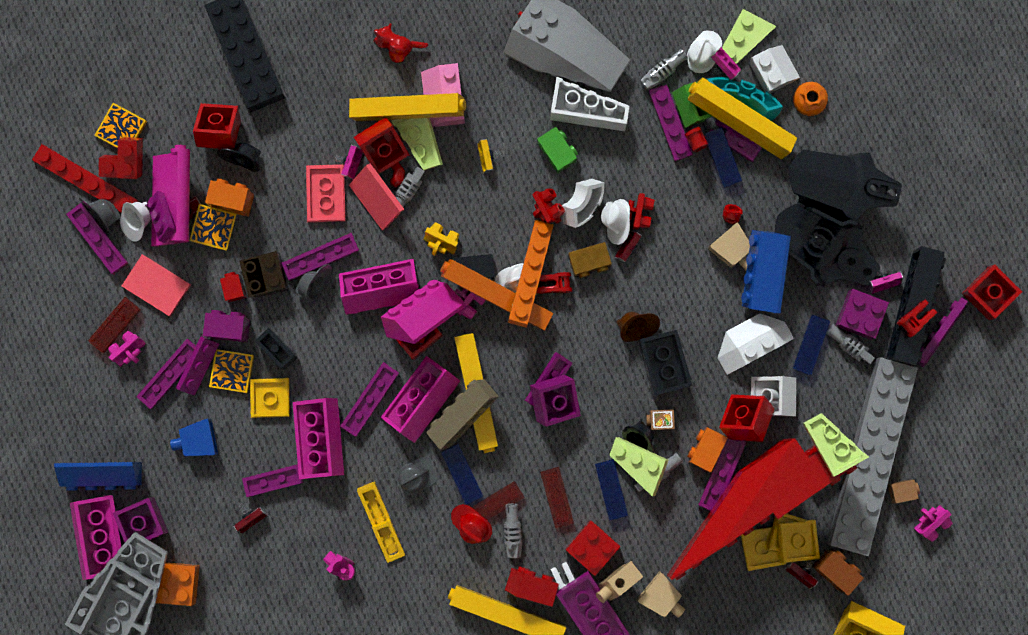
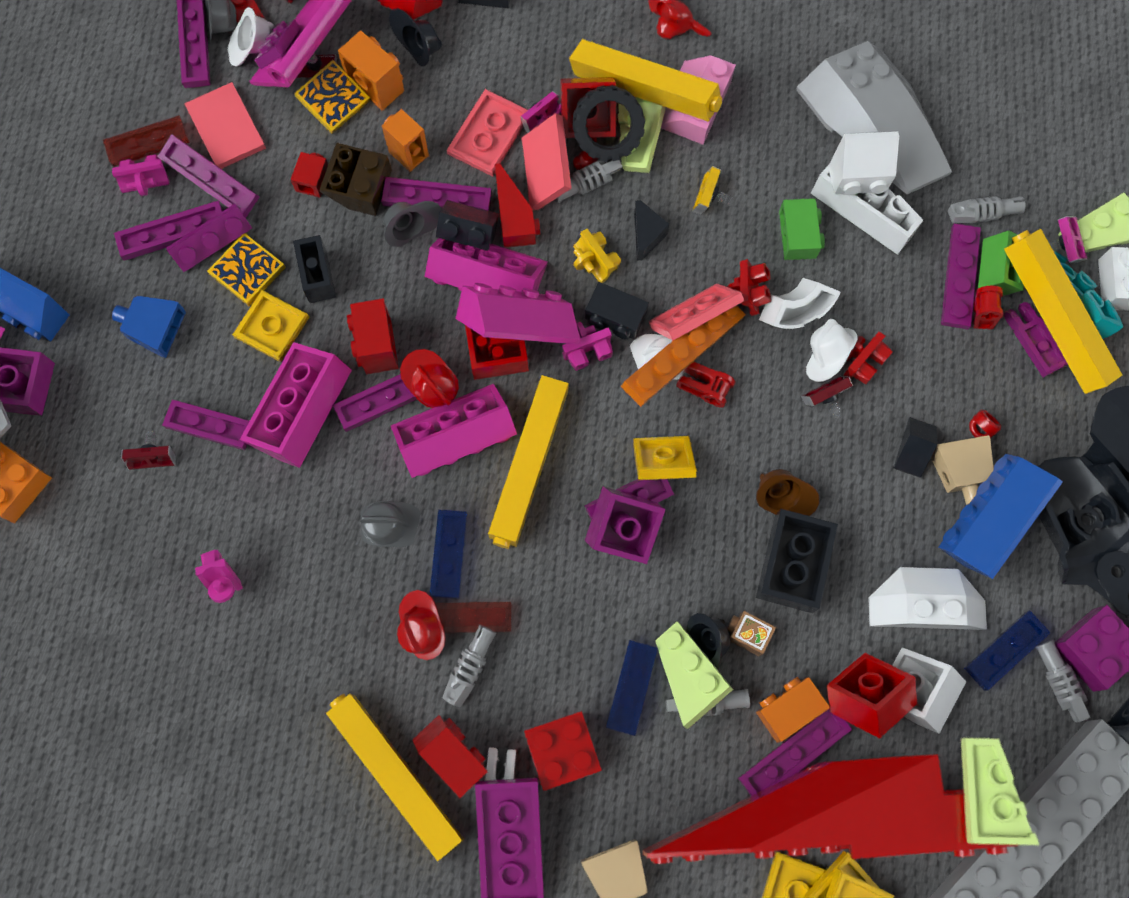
camera: 25 degrees right, 10 degrees down
(167, 325) = (207, 175): none -> magenta plate
(226, 327) = (271, 208): magenta brick -> none
(280, 233) = (405, 140): none -> orange brick
(340, 371) = (372, 336): none -> red brick
(352, 266) = (467, 225): none -> black brick
(376, 240) = (516, 214): none -> red slope
(380, 521) = (308, 555): yellow slope -> none
(389, 378) = (429, 378): none -> red piece
(414, 164) = (636, 131): none -> black tyre
(461, 414) = (493, 473): dark tan brick -> none
(464, 204) = (649, 229): none -> black slope
(490, 291) = (621, 343): orange brick -> none
(523, 243) = (695, 311): none -> coral tile
(555, 345) = (664, 458): none -> yellow tile
(557, 497) = (553, 656): clear red plate -> none
(575, 95) = (864, 163): none -> white slope
(590, 259) = (768, 379): pearl gold brick -> none
(618, 582) = (570, 819): tan torso -> none
(698, 250) = (916, 447): none -> black slope
(701, 51) = (1044, 214): white piece -> none
(723, 157) = (1010, 349): clear blue plate -> none

